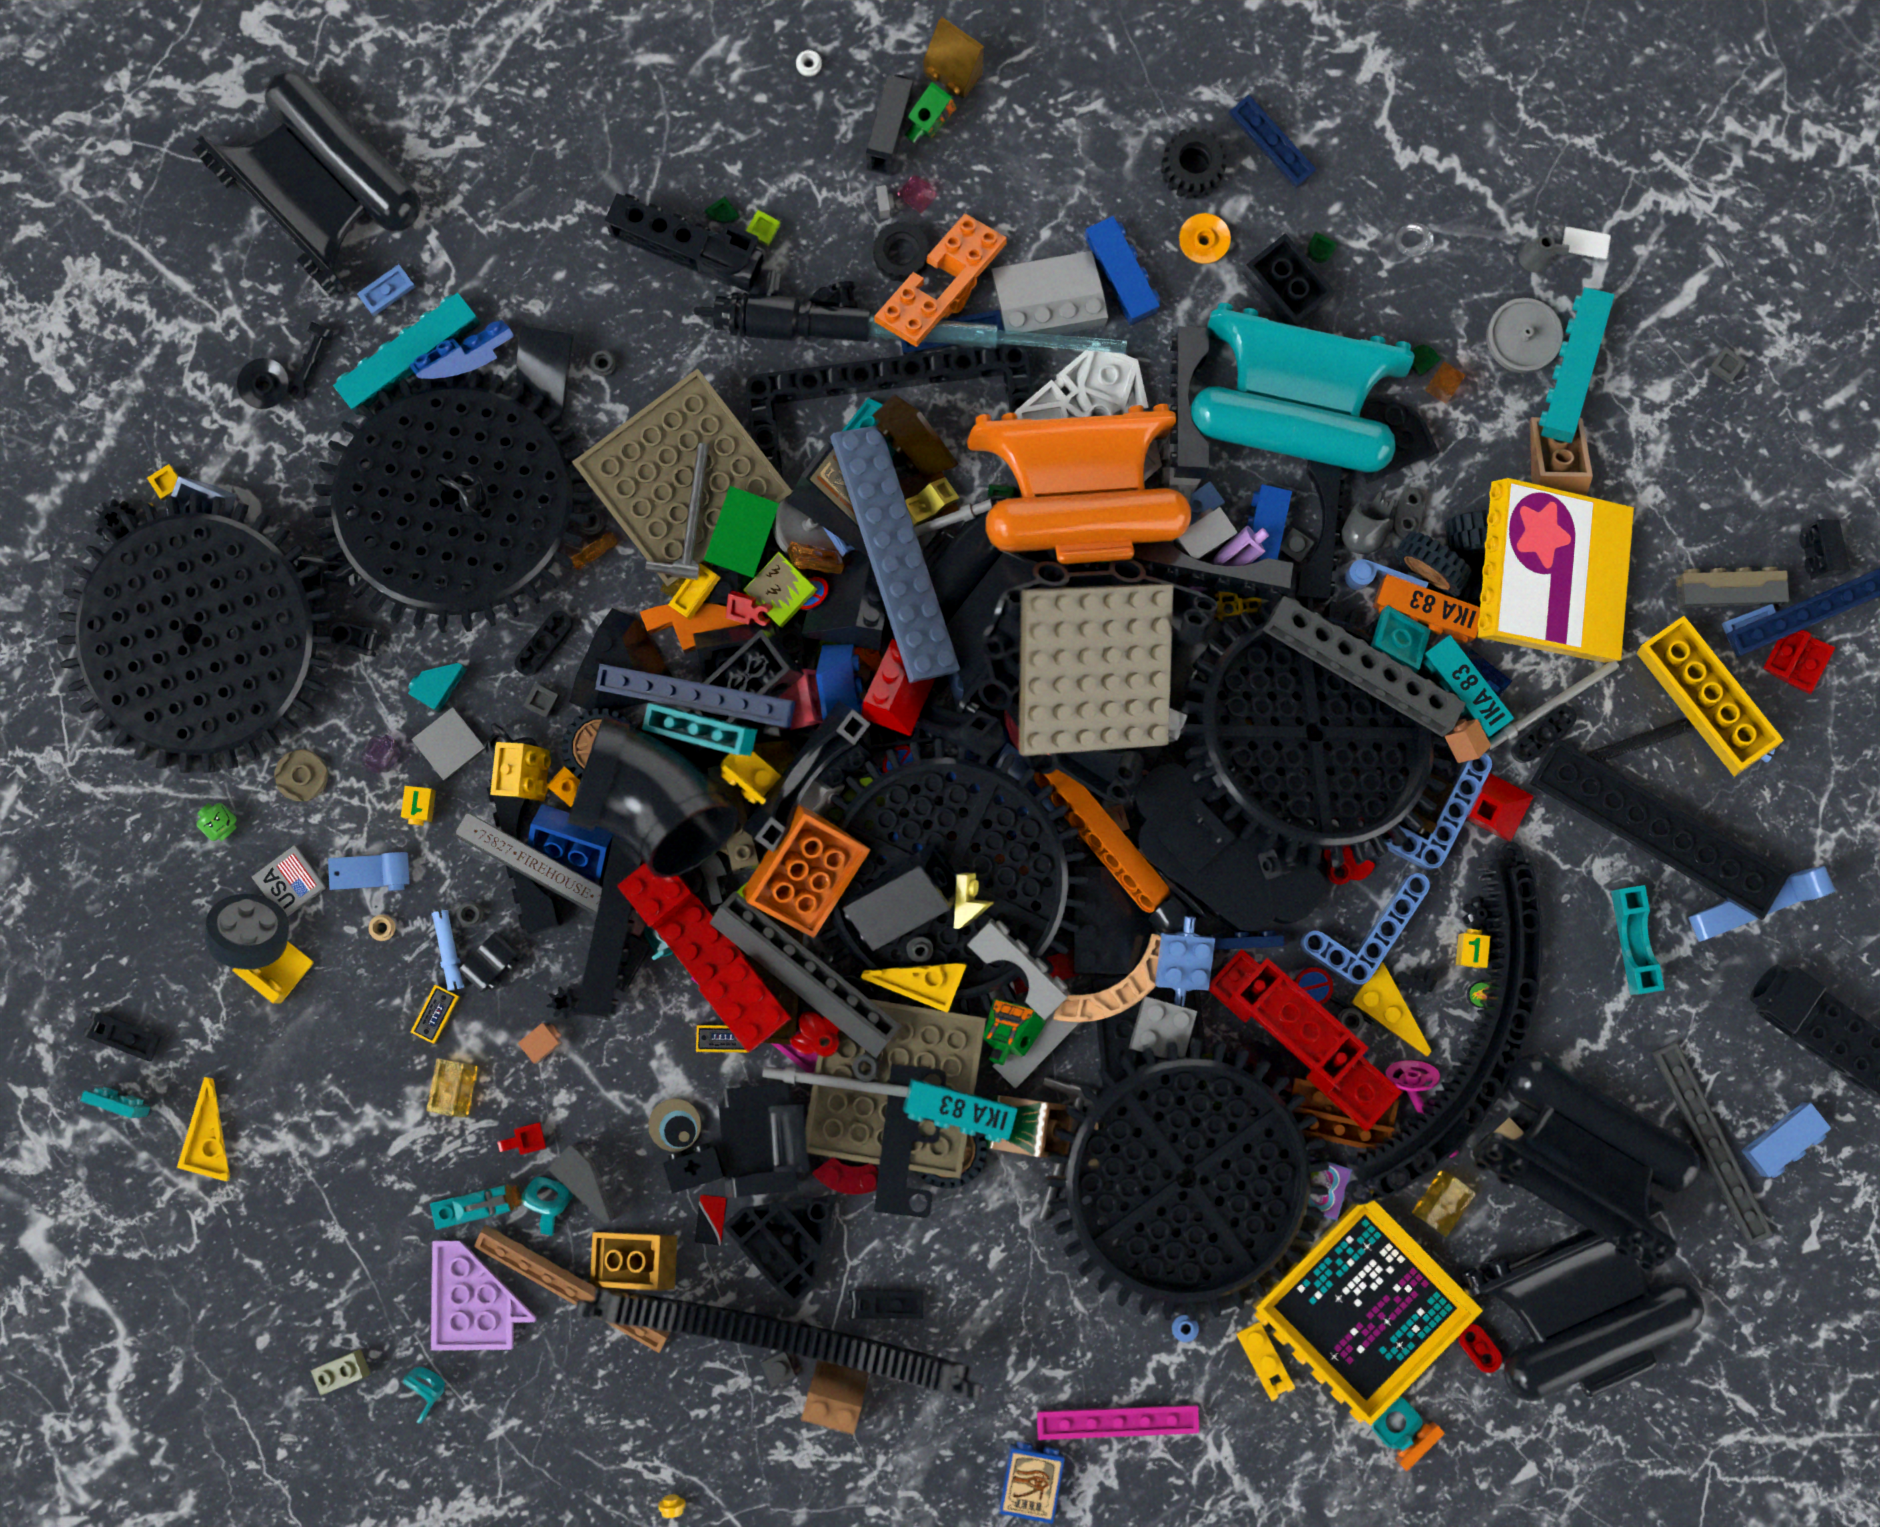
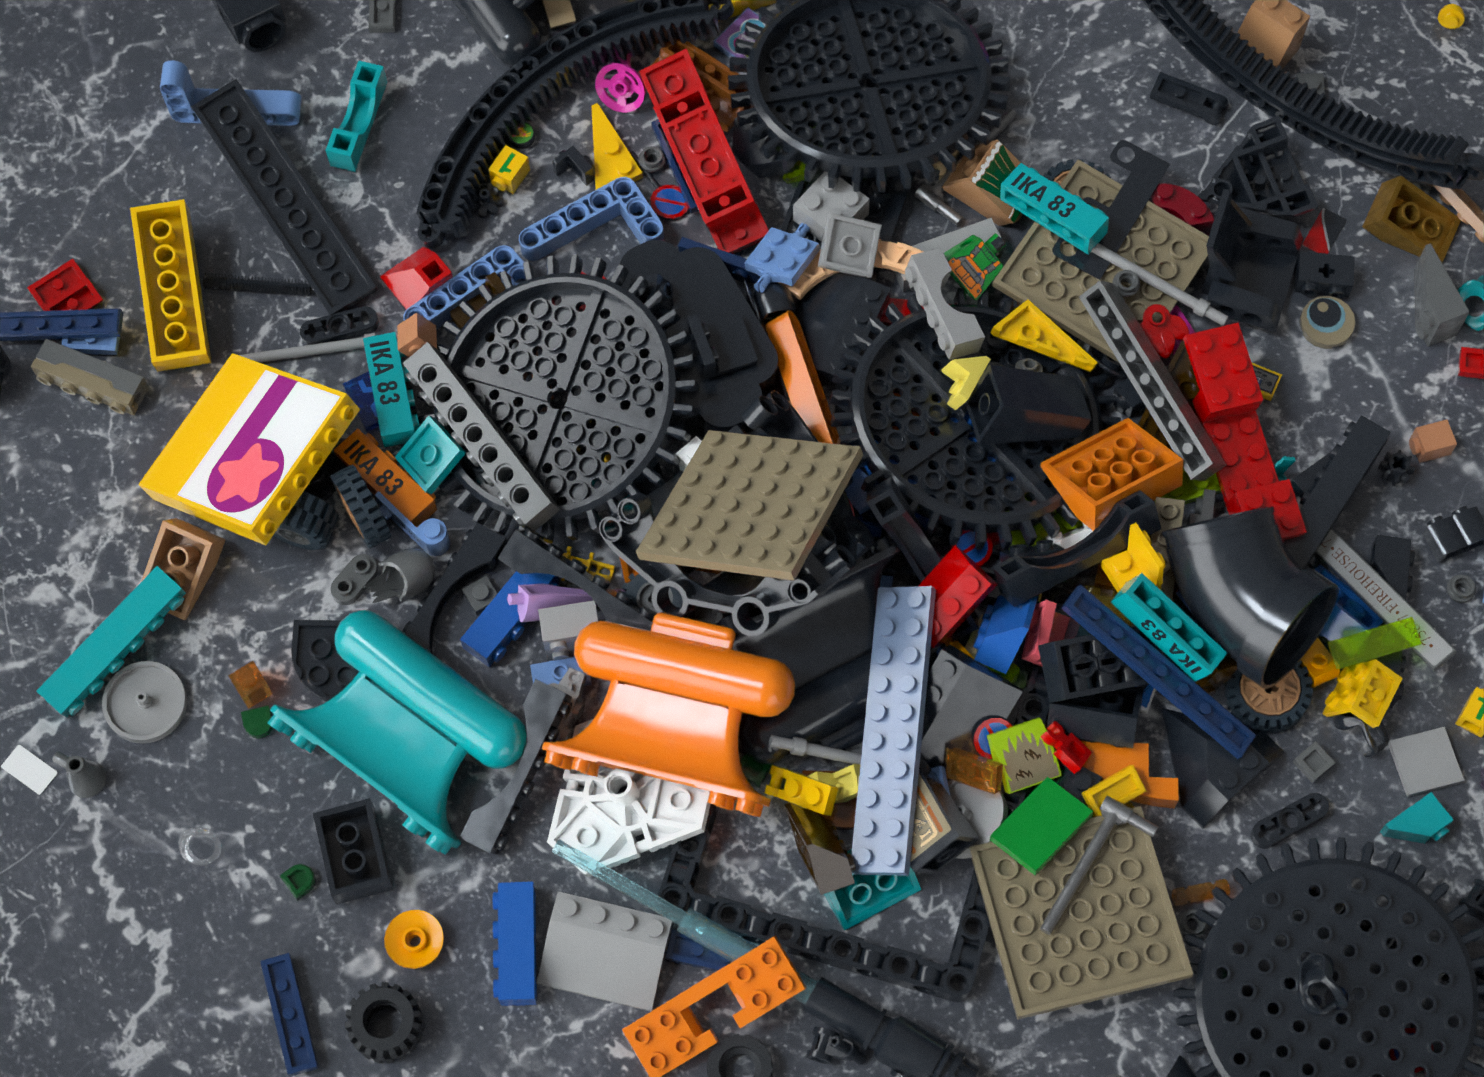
camera: 150 degrees left, 15 degrees down
(524, 813) = (1374, 643): none -> clear neon green tile
(950, 486) = (802, 790): none -> yellow plate
(1128, 993) = (849, 245): none -> light grey tile

